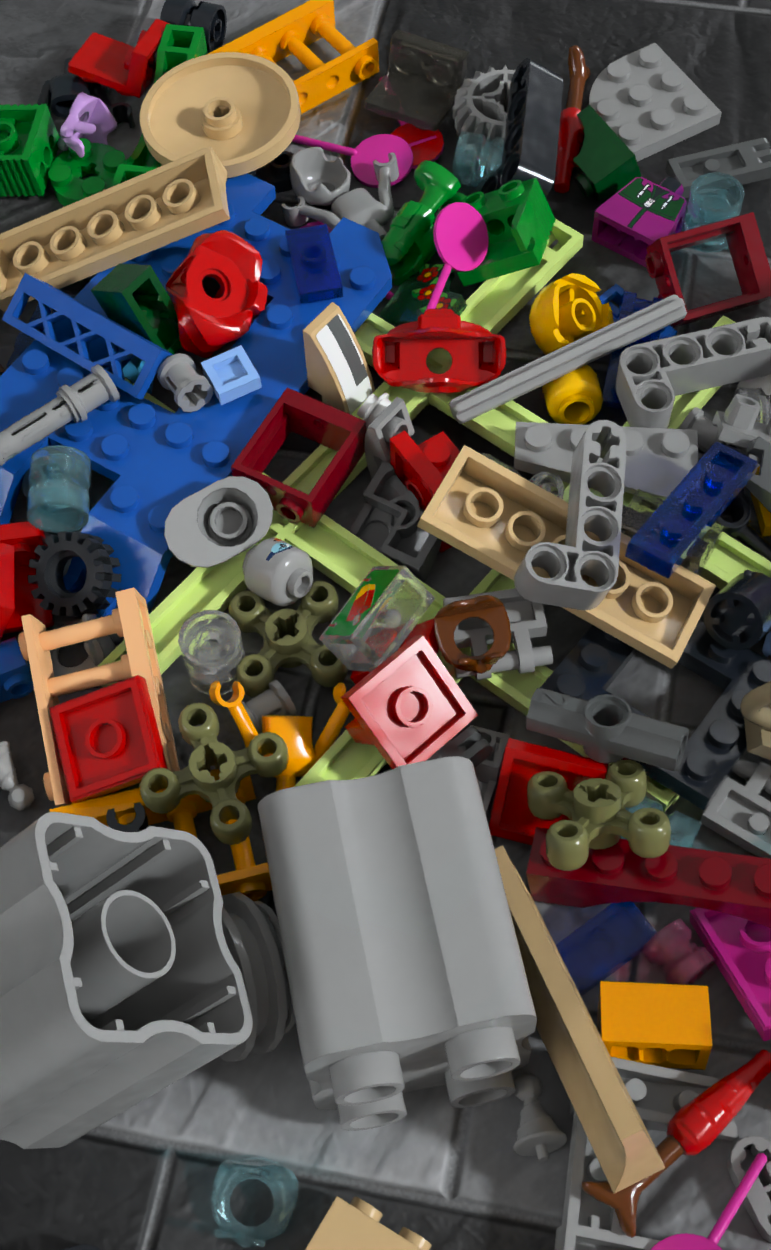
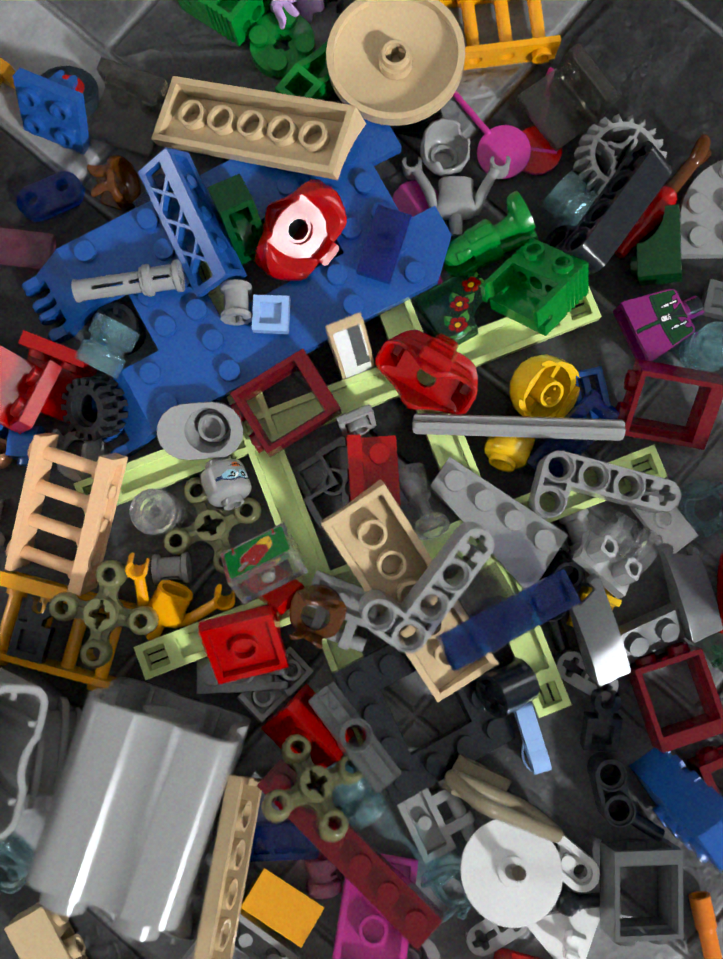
camera: 30 degrees right, 25 degrees up
(107, 739) = (51, 551): red plate -> none
(373, 407) = (358, 395): white plate -> none
(460, 242) = (496, 287): dark pink piece -> none

